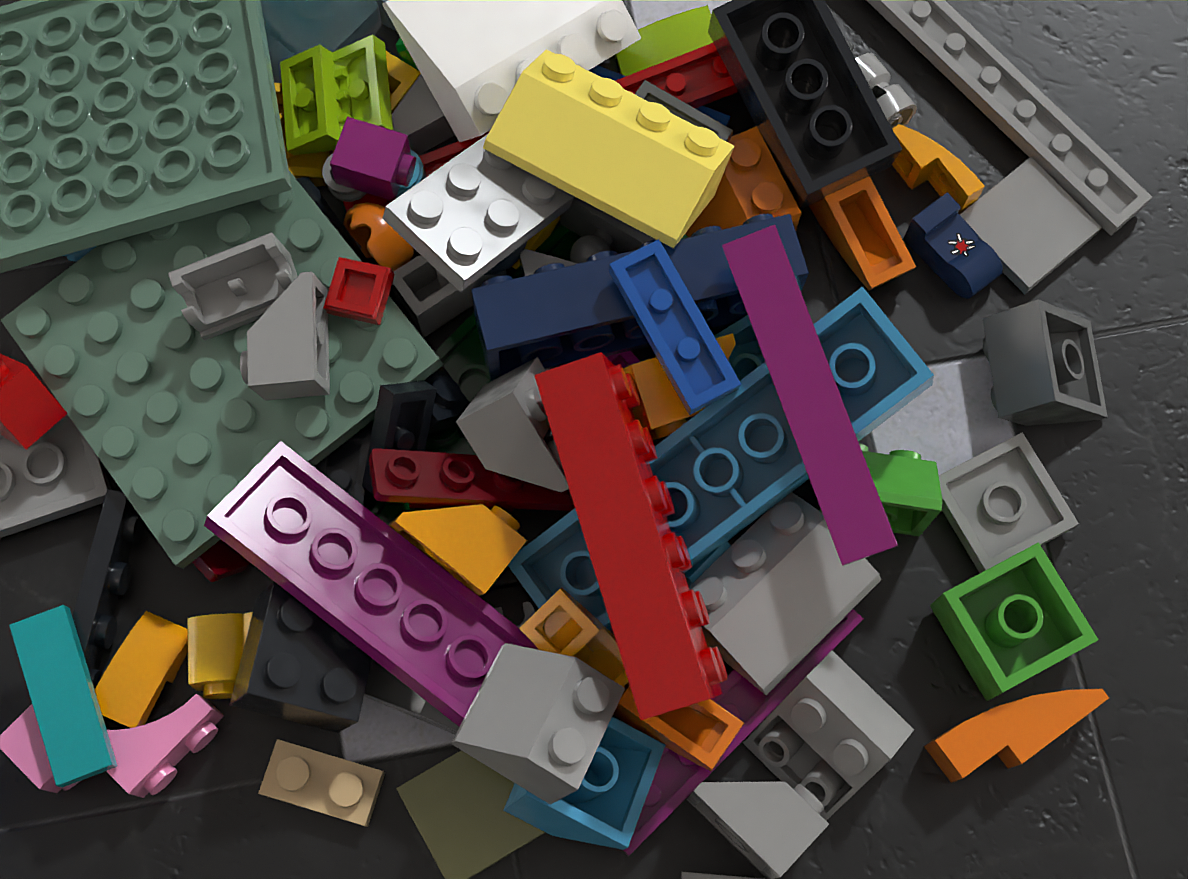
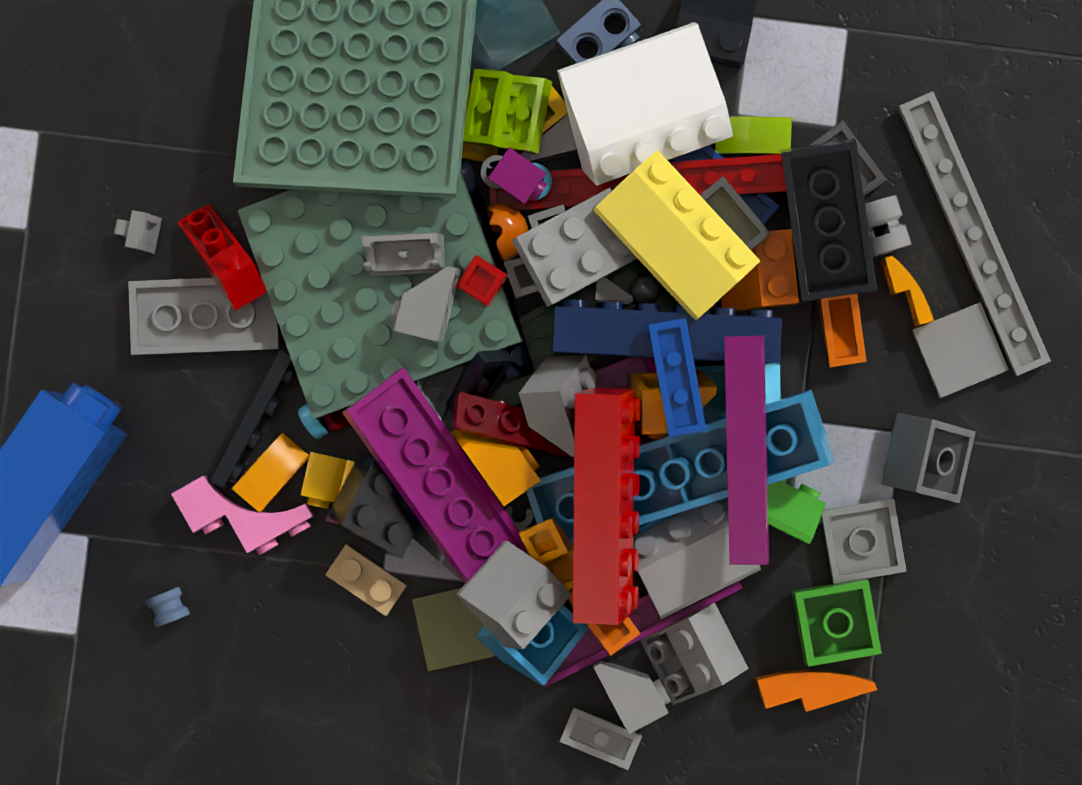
camera: 20 degrees right, 15 degrees up
(63, 696) = (222, 480): teal tile -> none
(186, 580) = (316, 427): none -> medium azure tile
(953, 248) = (899, 354): dark blue leg -> none

